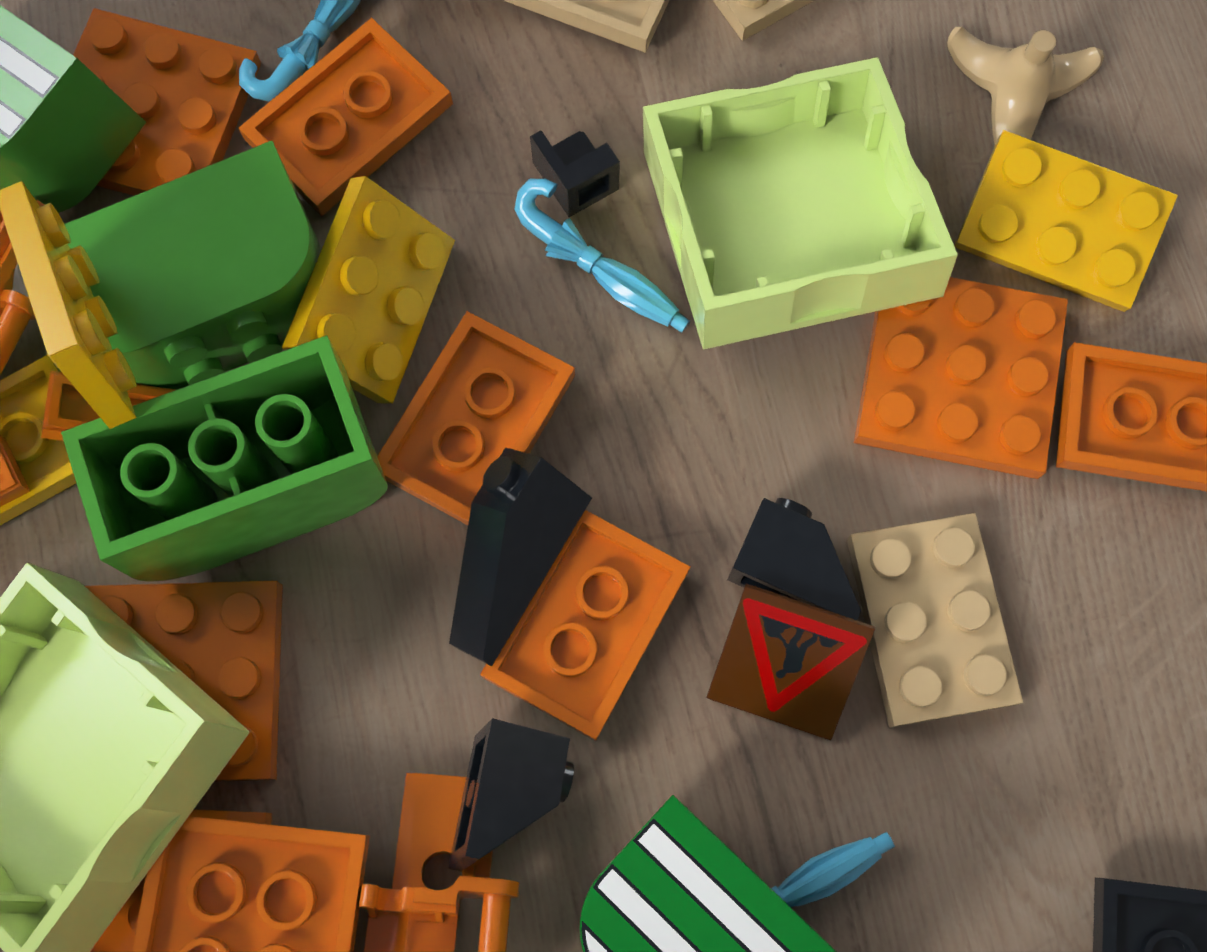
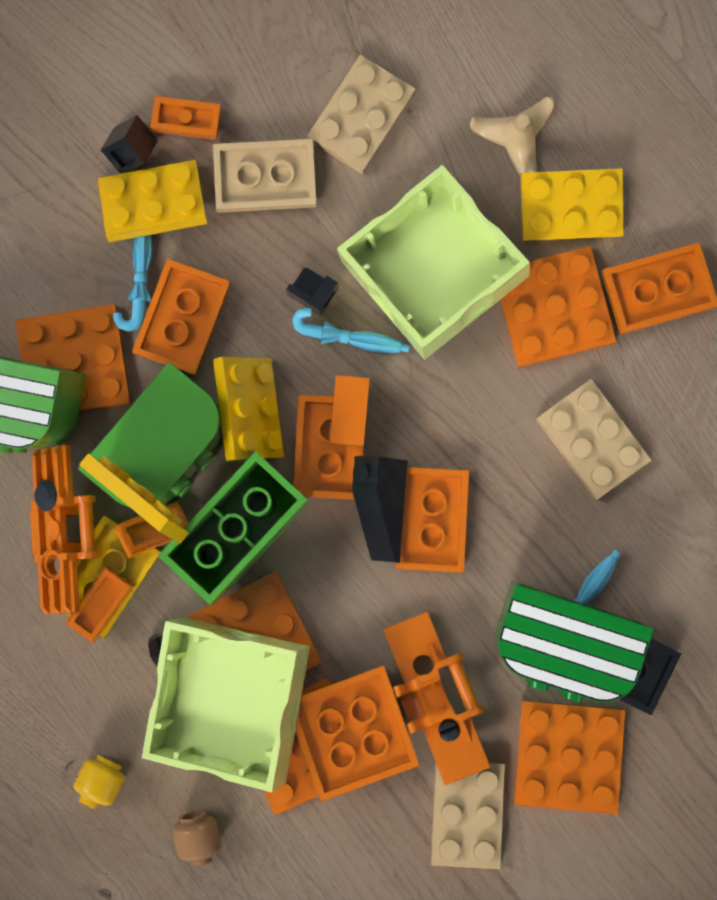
camera: 25 degrees left, 10 degrees up
(509, 785) = (435, 614): black slope -> none
(535, 371) = (349, 410): none -> orange tile
(789, 661) = (536, 494): reddish brown piece -> none
(794, 559) = (516, 445): black slope -> none

